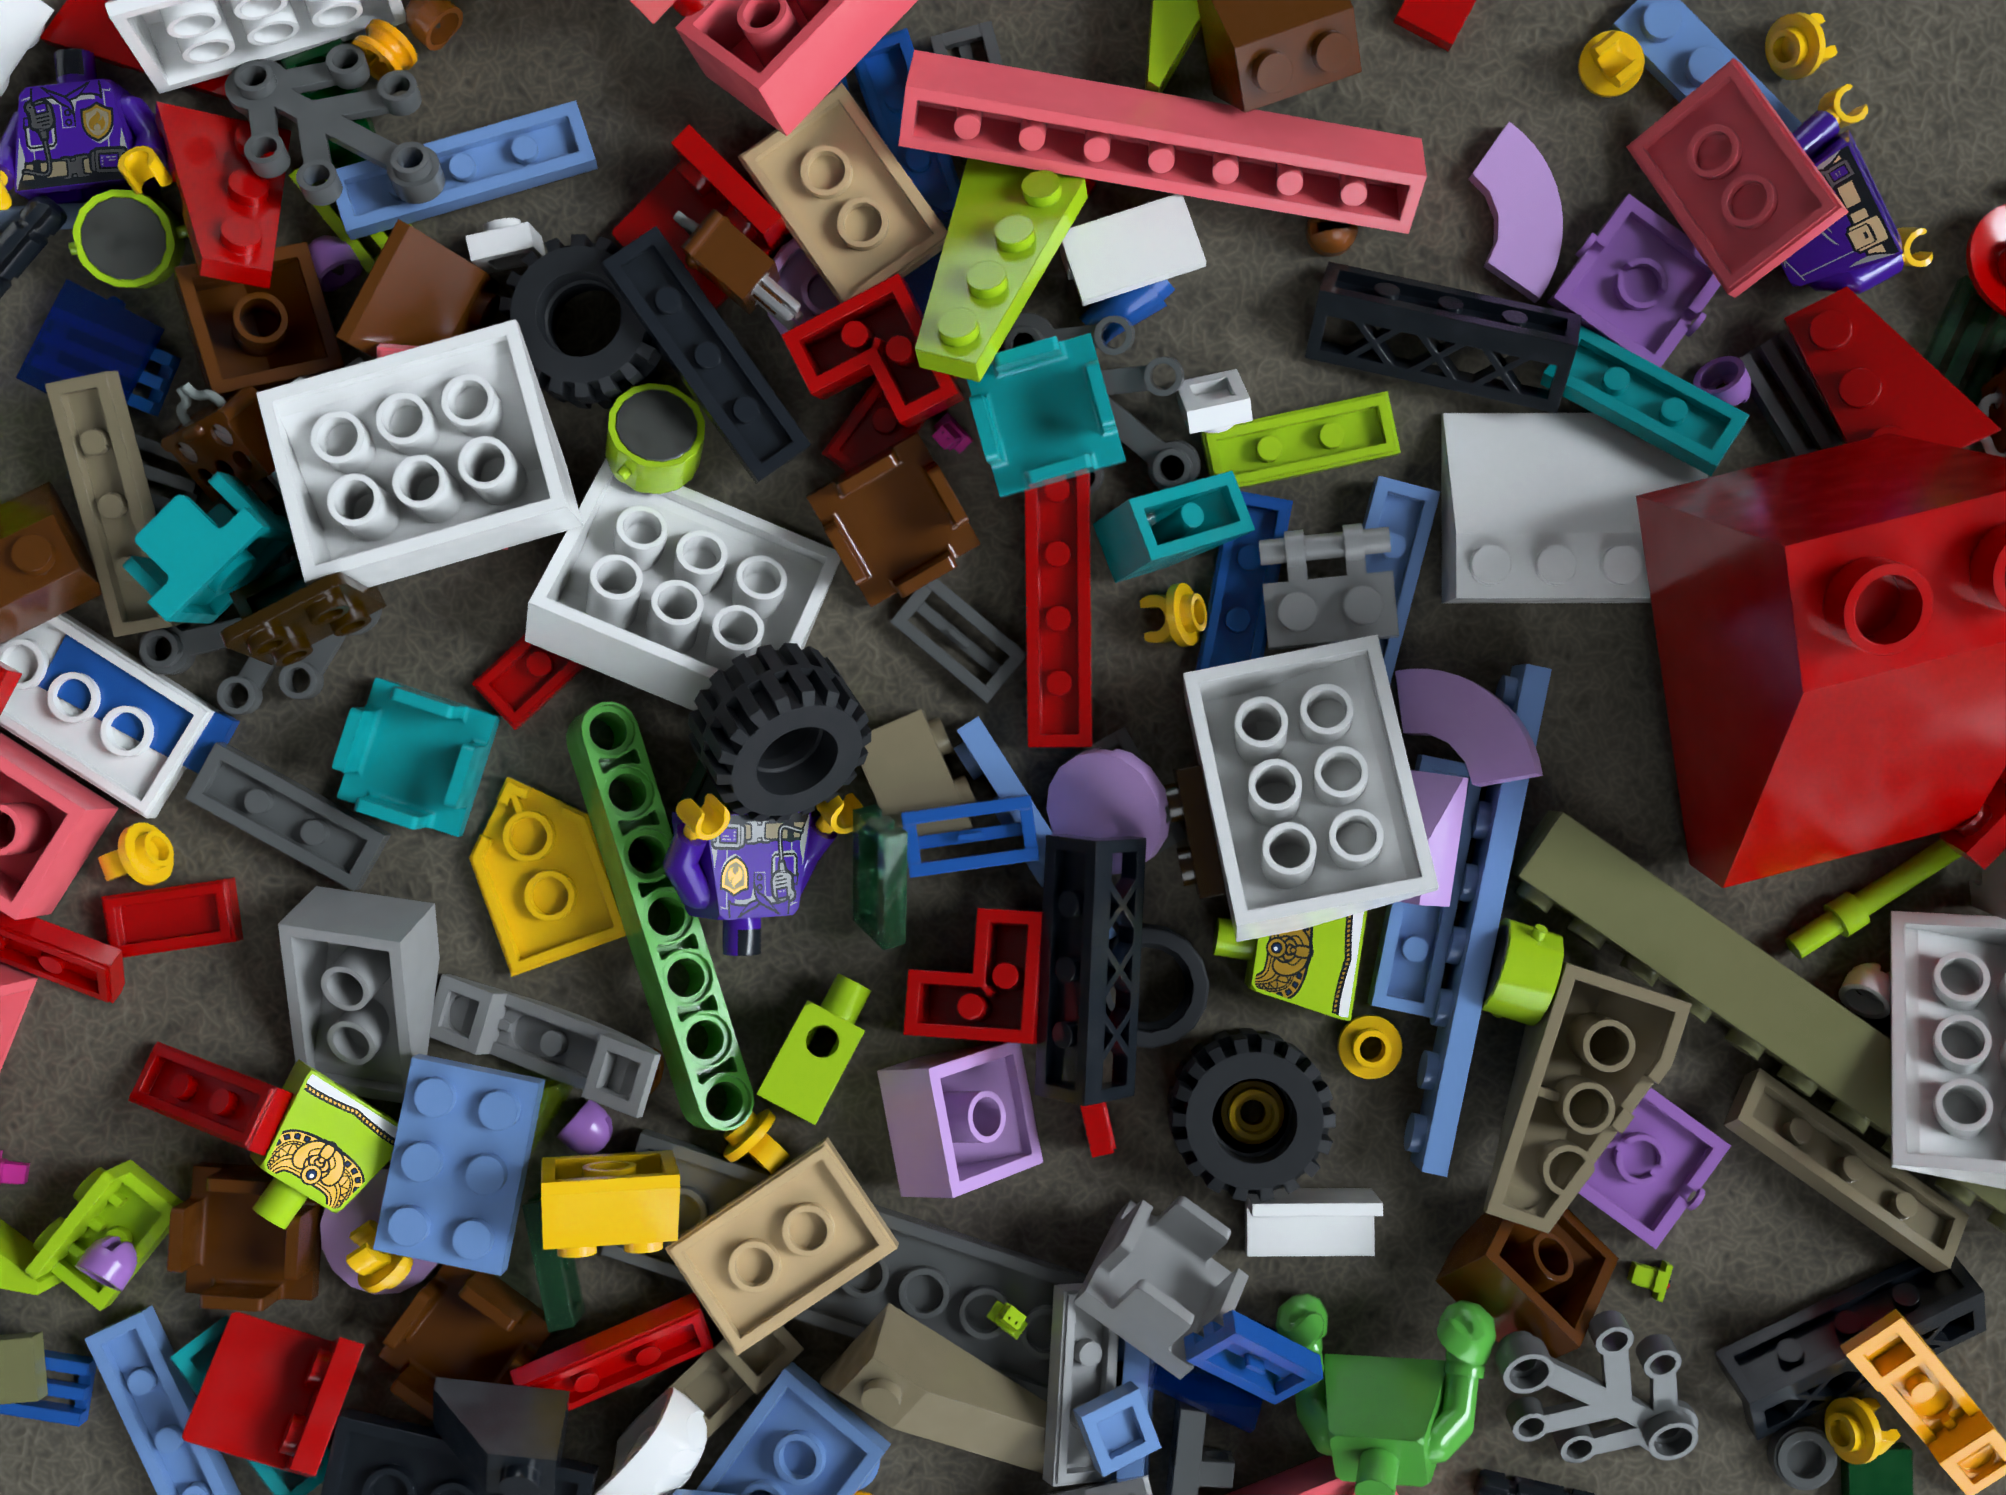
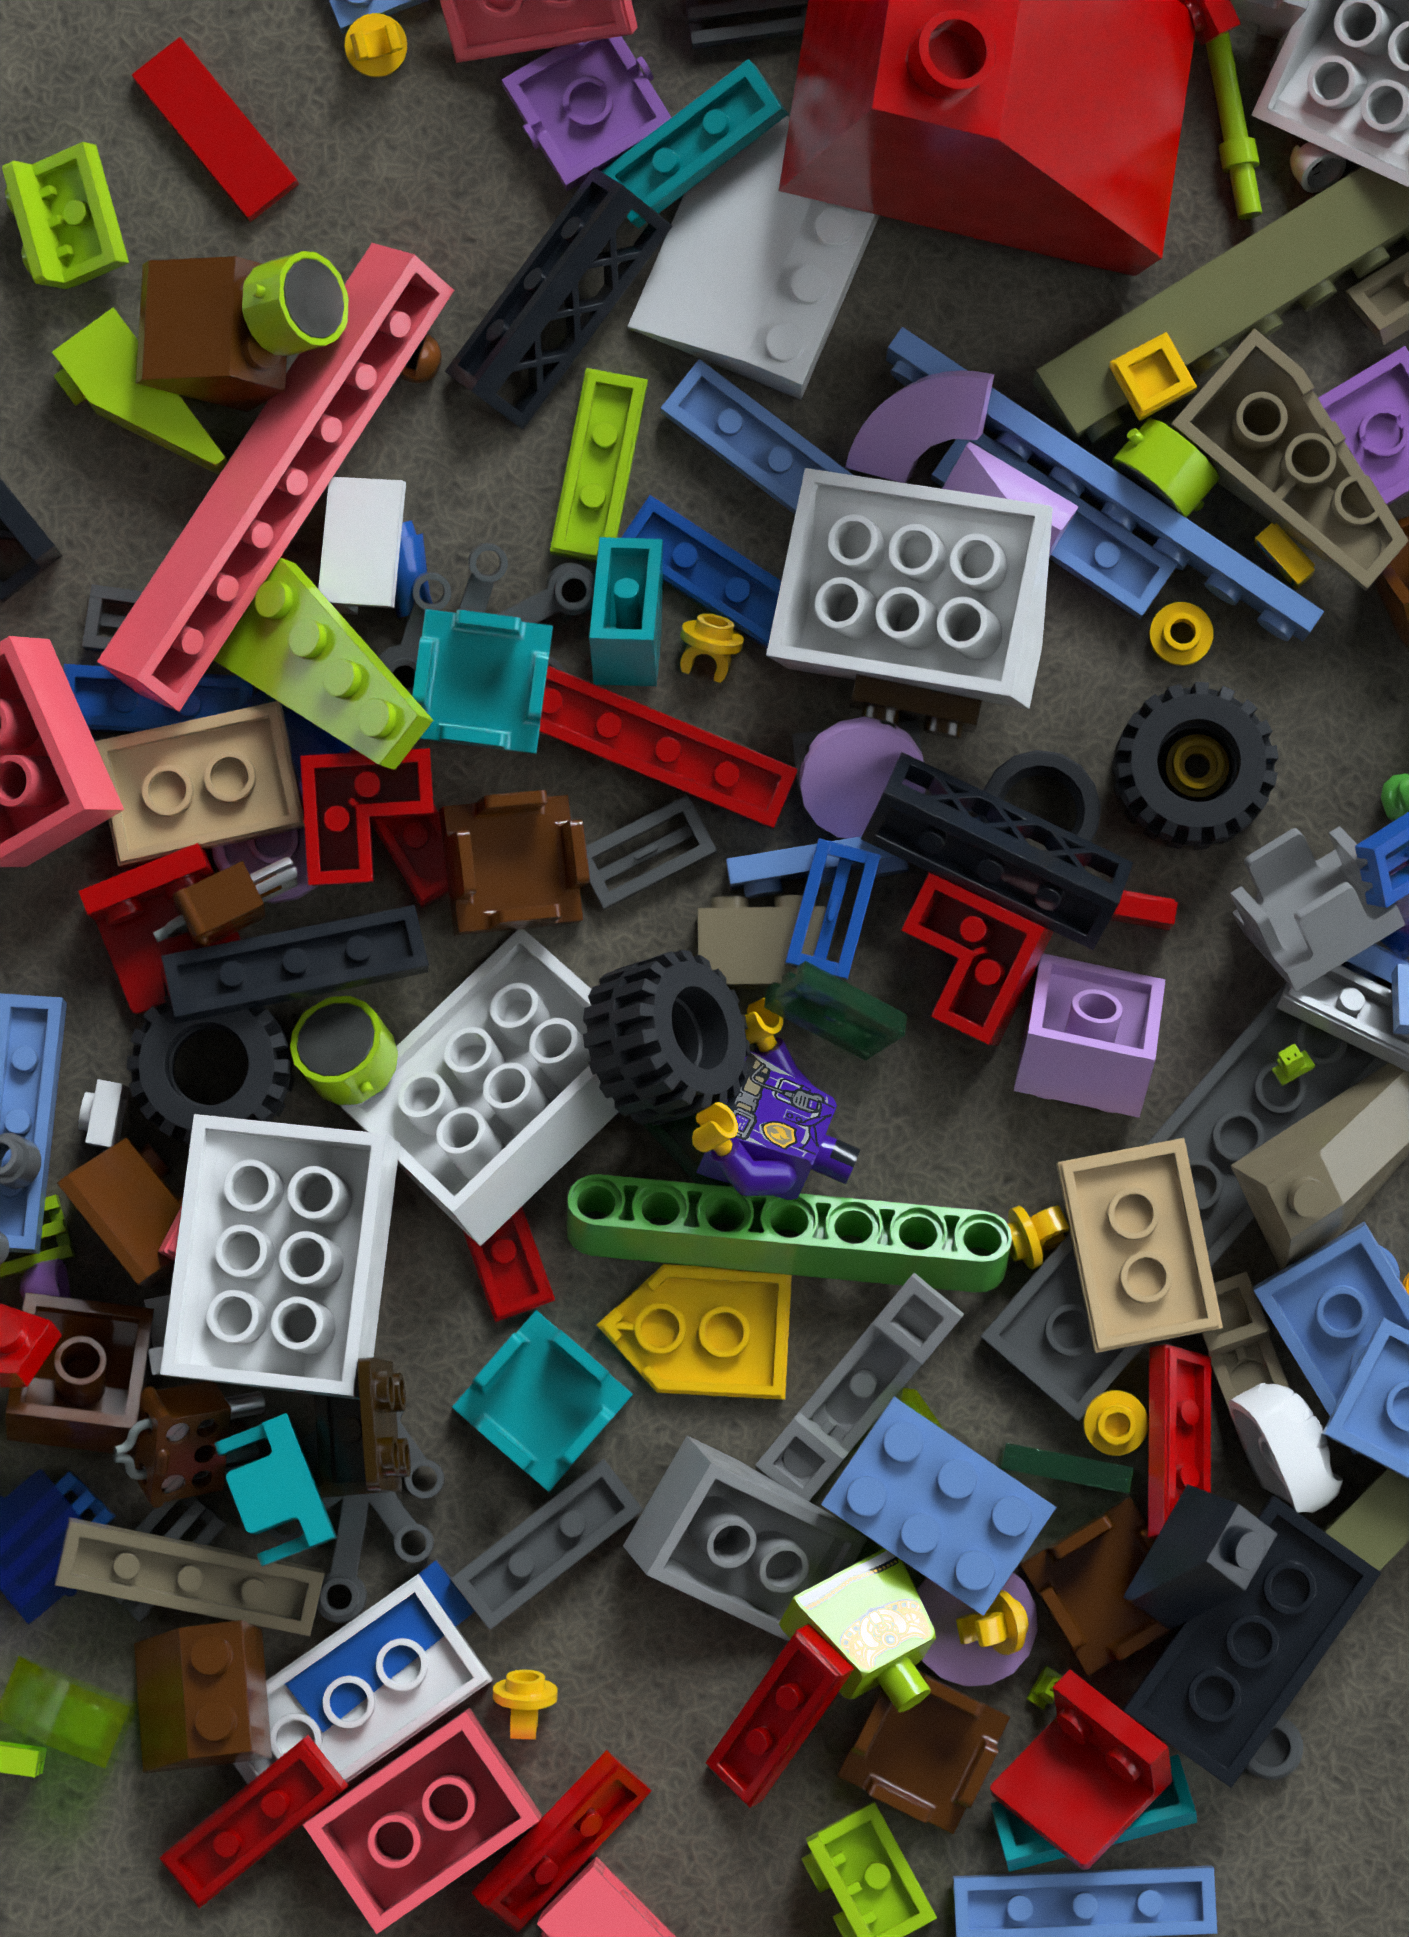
camera: 55 degrees left, 5 degrees down
(109, 1262) = (896, 1882): medium lavender hinge -> none
(173, 917) = (594, 1697): red tile -> none
(354, 1321) = (1042, 1689): none -> lime piece
(588, 1129) = (957, 1388): medium lavender hinge -> none
(609, 1201) = (1030, 1375): yellow slope -> none
(612, 1289) = (1115, 1422): none -> yellow plate
(804, 1081) = (991, 1157): lime torso -> none
(951, 434) = (454, 780): dark pink piece -> none
(1214, 402) = (529, 527): white plate -> none
(1303, 966) = (1077, 661): torso -> none
(1312, 1223) = (1321, 755): white panel -> none
(1328, 608) = (763, 499): light grey plate -> none
(1331, 81) = (295, 303): none -> piece
(1484, 1115) = (1285, 555): none -> yellow tile
(1523, 210) = (475, 177): lavender tile -> none
(1604, 925) = (1152, 376): none -> yellow tile
(1731, 372) = (696, 66): medium lavender hinge -> none

